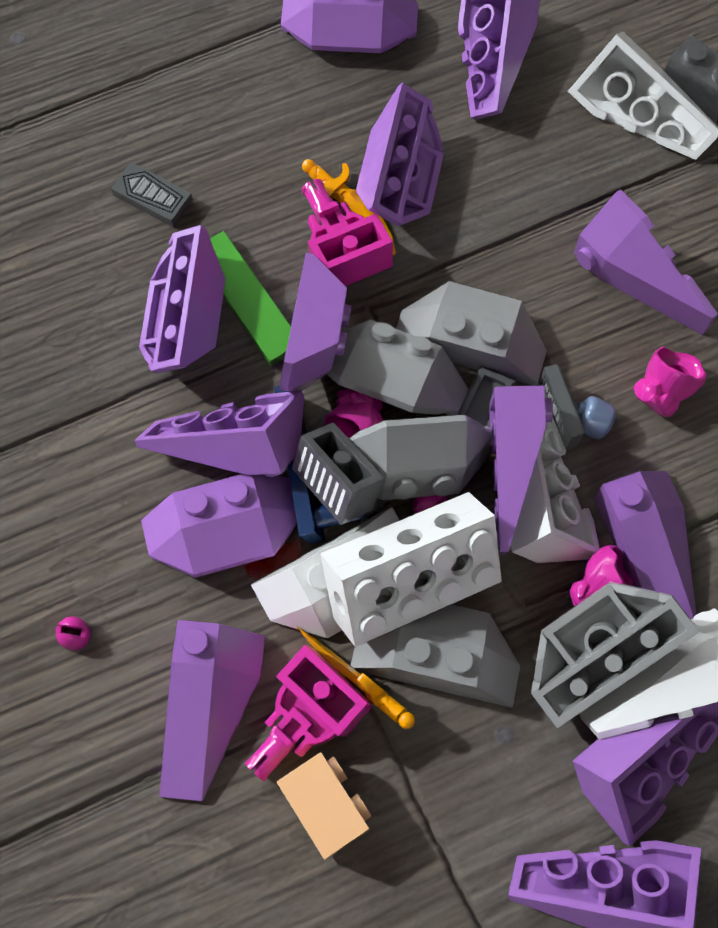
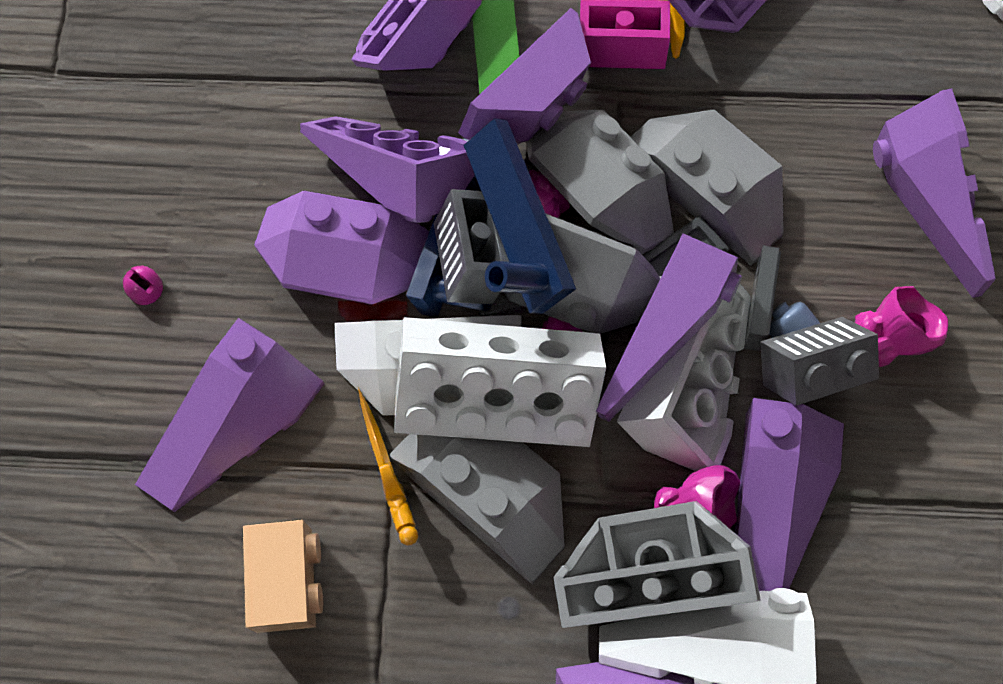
camera: 35 degrees right, 0 degrees up
(313, 705) = (322, 475): dark pink brick -> none
(397, 458) = (533, 253): none -> dark blue piece
(631, 433) = (819, 360): none -> flat silver brick

